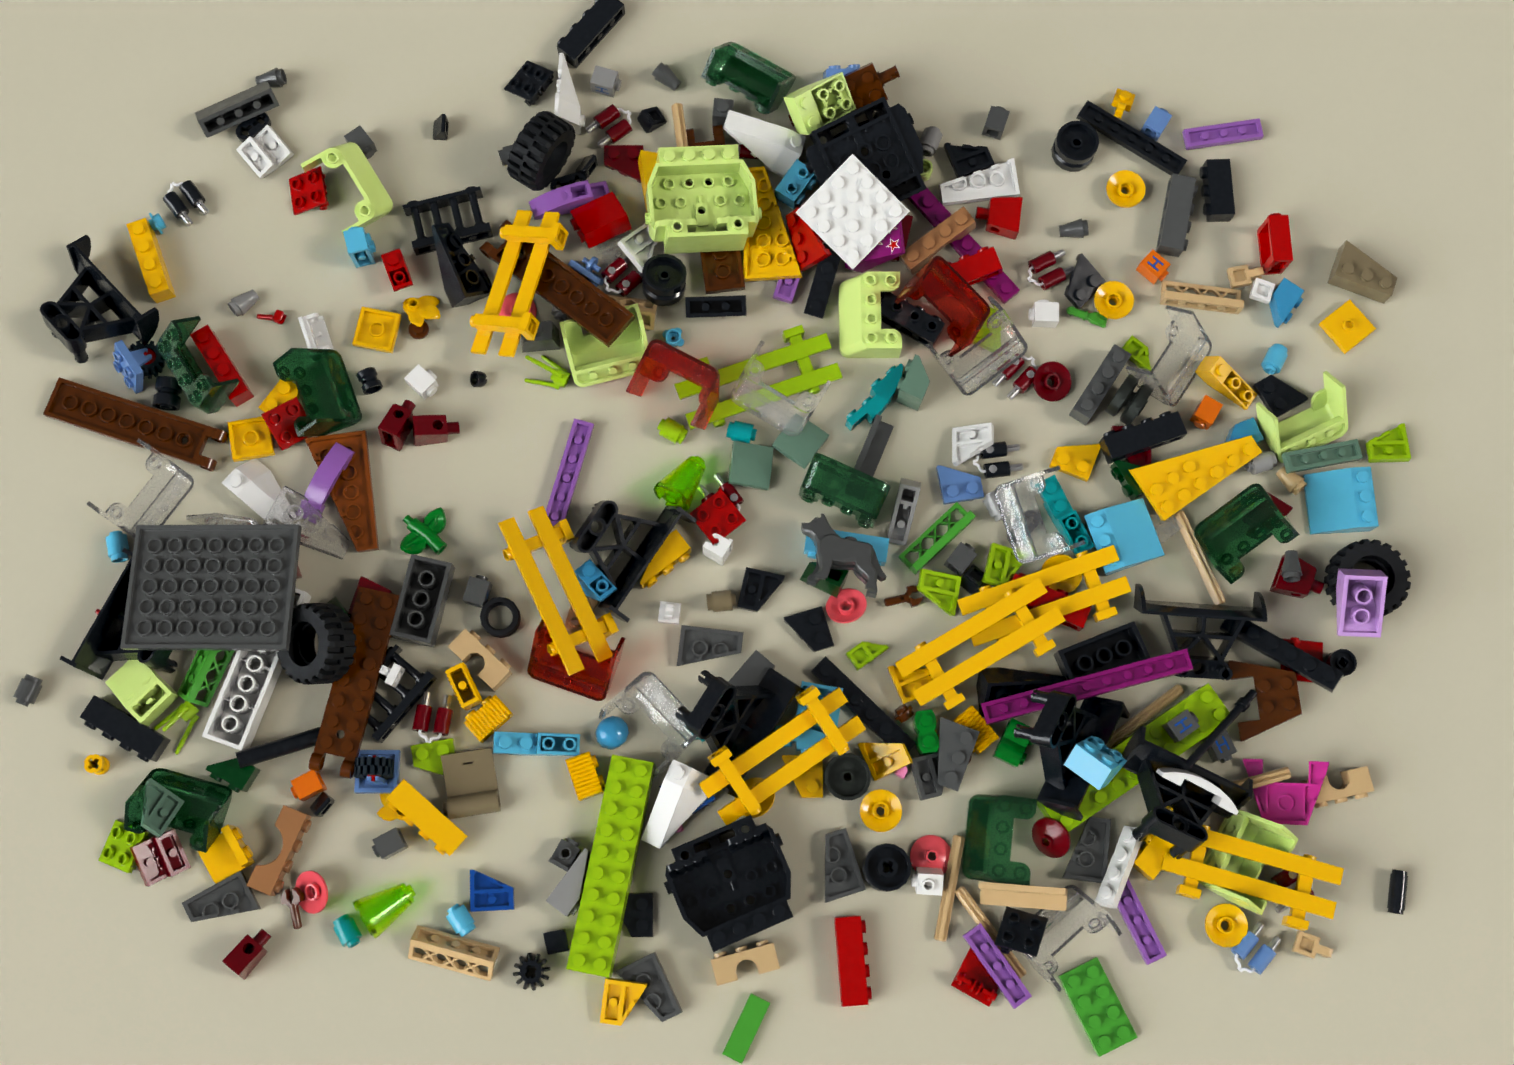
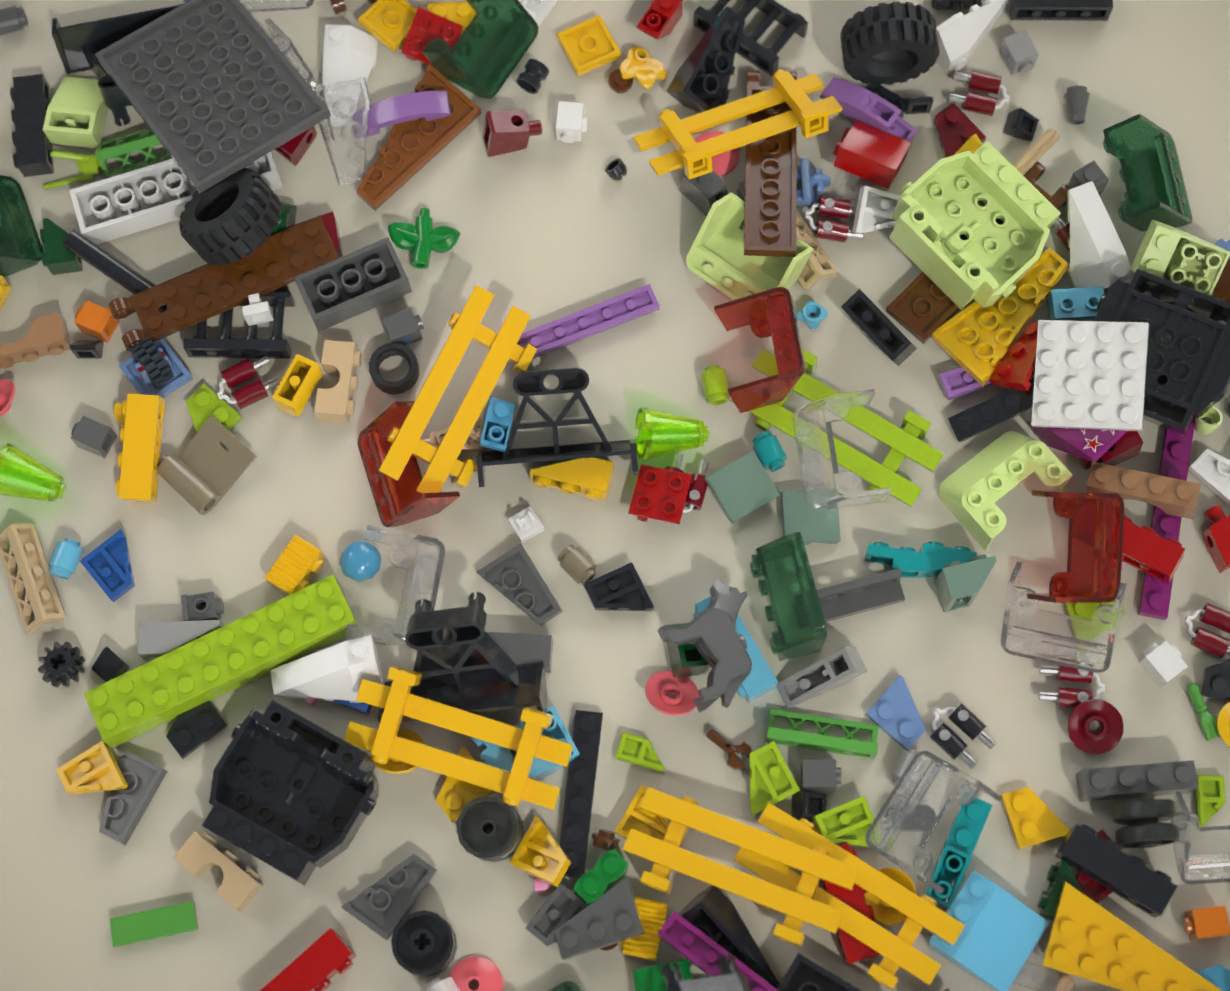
camera: 60 degrees right, 5 degrees down
(426, 431) = (529, 164): dark red torso -> none
(487, 718) = (284, 432): yellow brick -> none
(536, 744) = (292, 496): medium azure slope -> none
(559, 375) = (681, 239): lime plant -> none
(664, 279) = (862, 257): black wheel -> none
(720, 551) = (627, 522): white hinge -> none
(811, 628) = (621, 678): black wing -> none
(891, 806) = (469, 885): yellow dish -> none
(910, 319) = (1034, 528): black brick -> none
(970, 440) = (955, 689): white wing -> none

